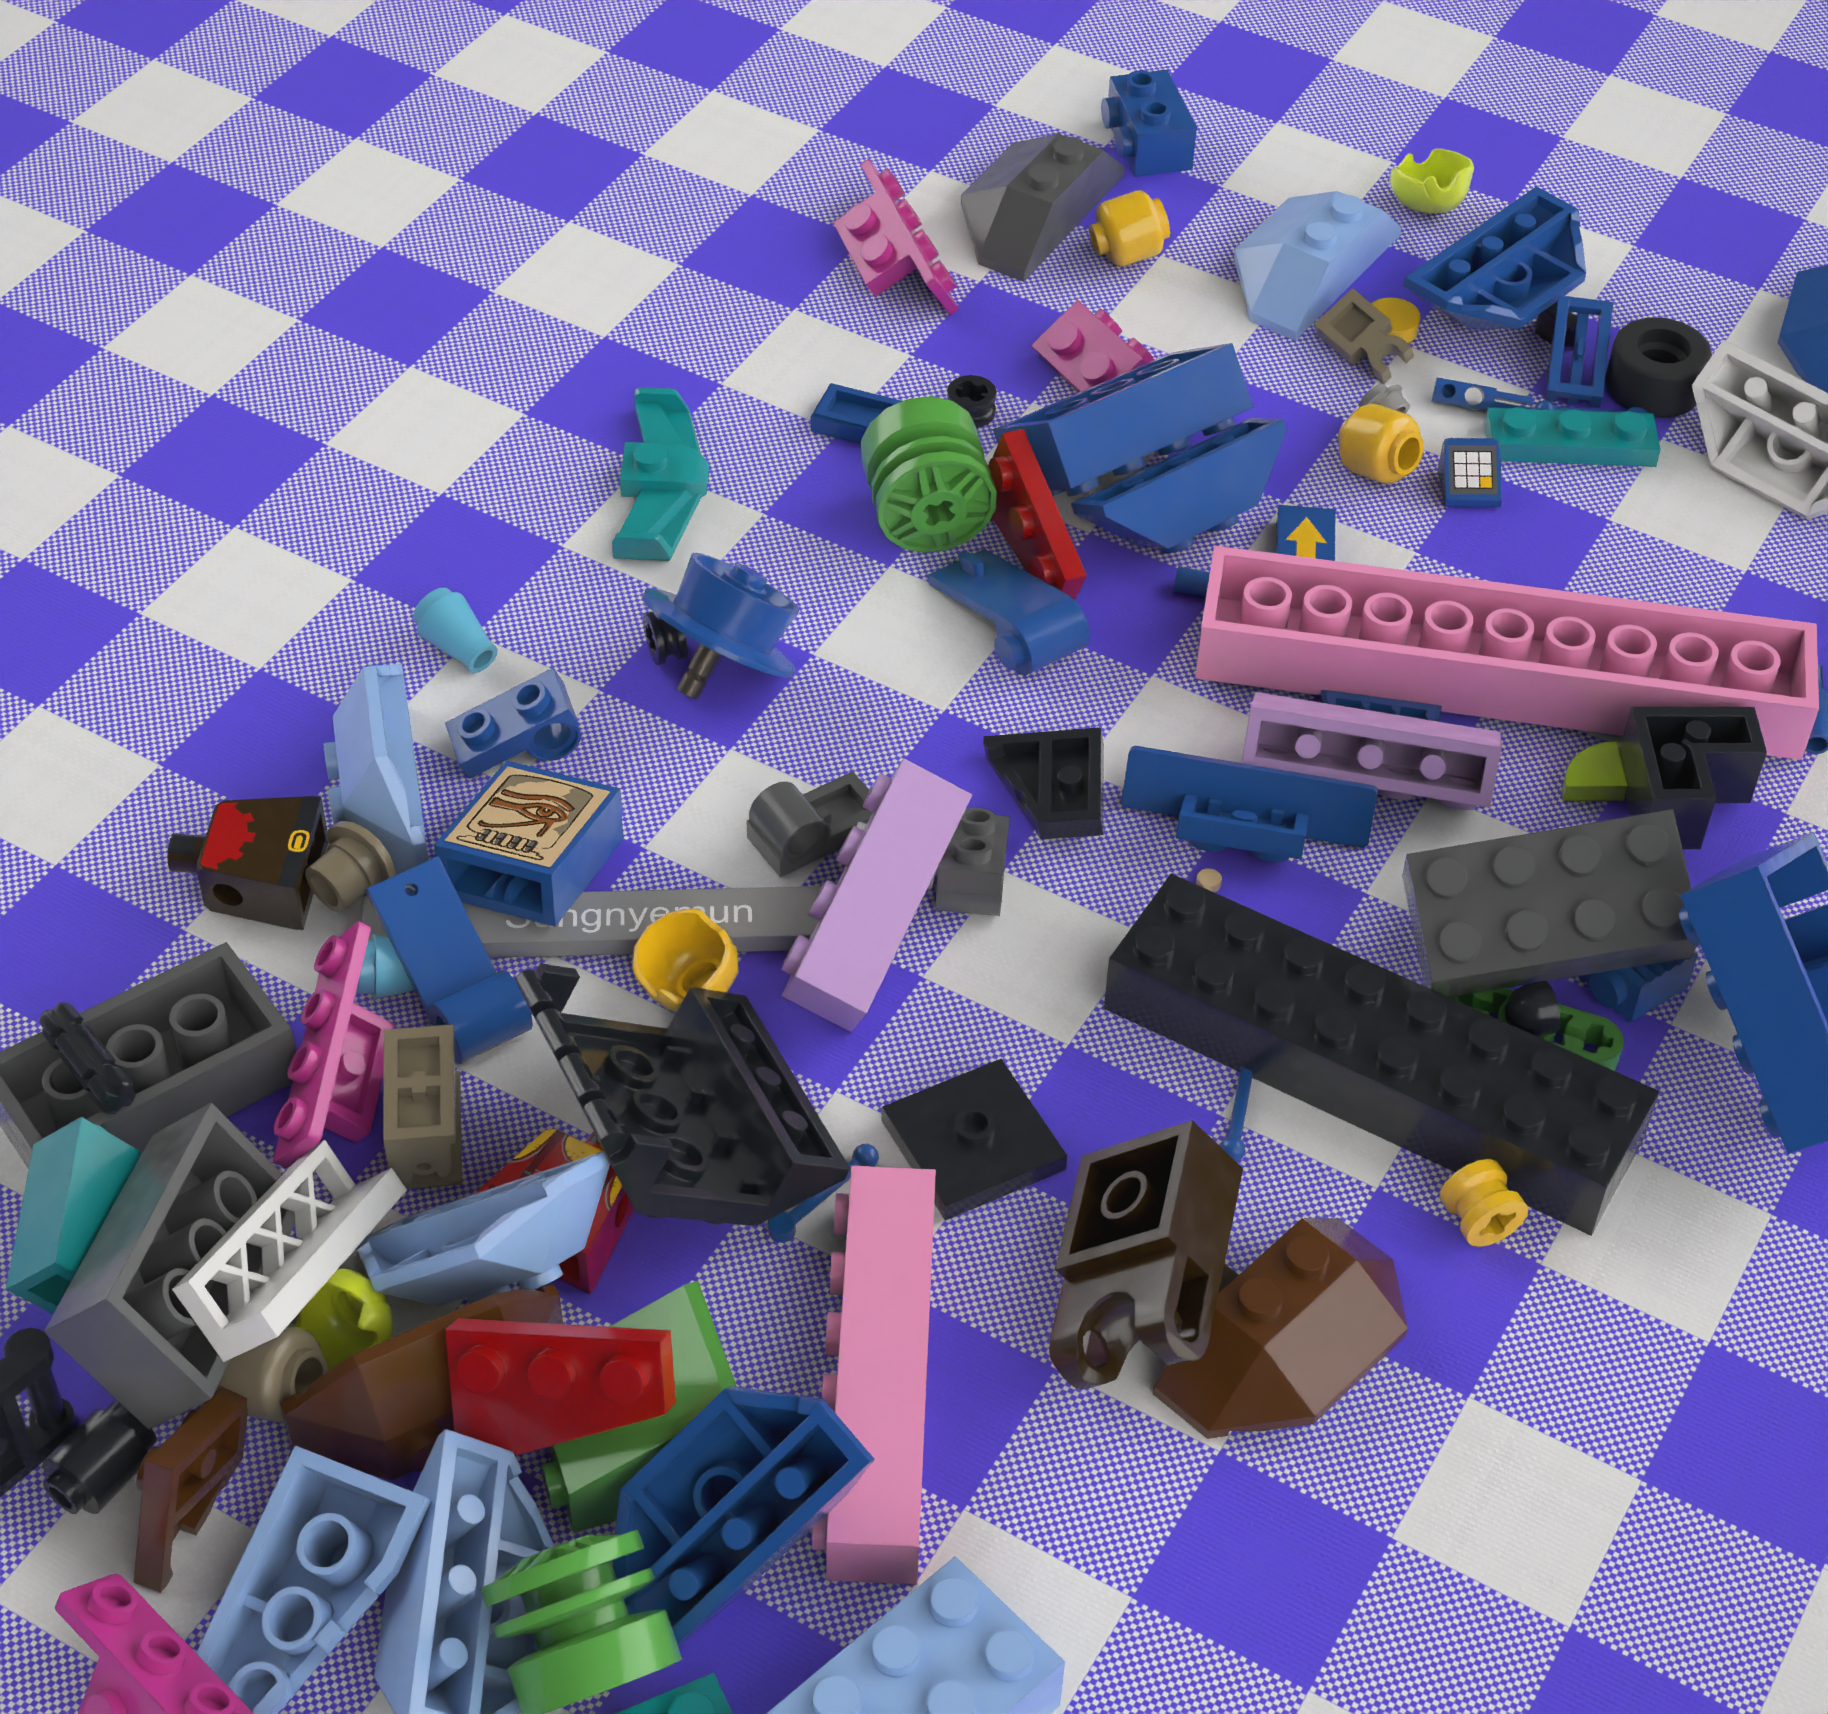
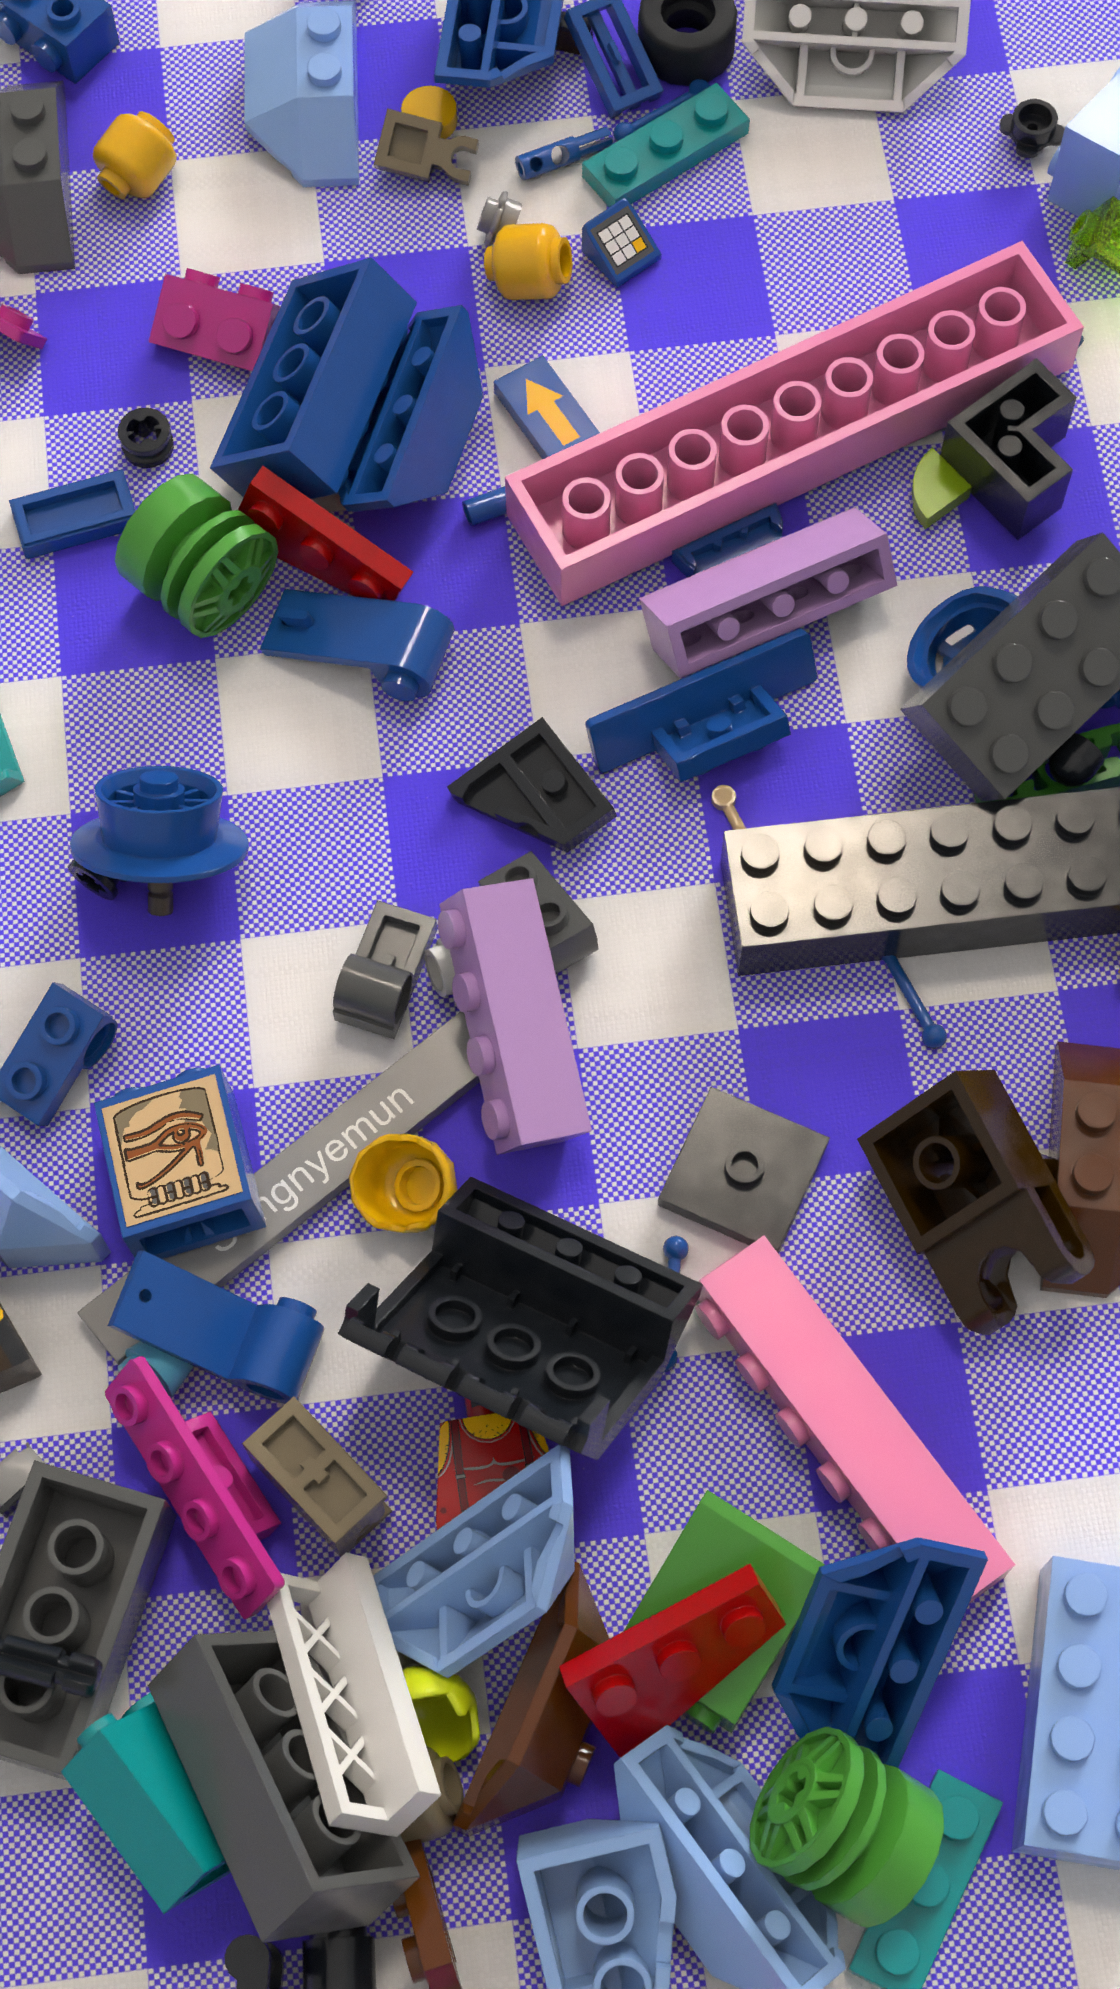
camera: 35 degrees left, 20 degrees up
(349, 866) = (50, 1299): dark tan piece -> none

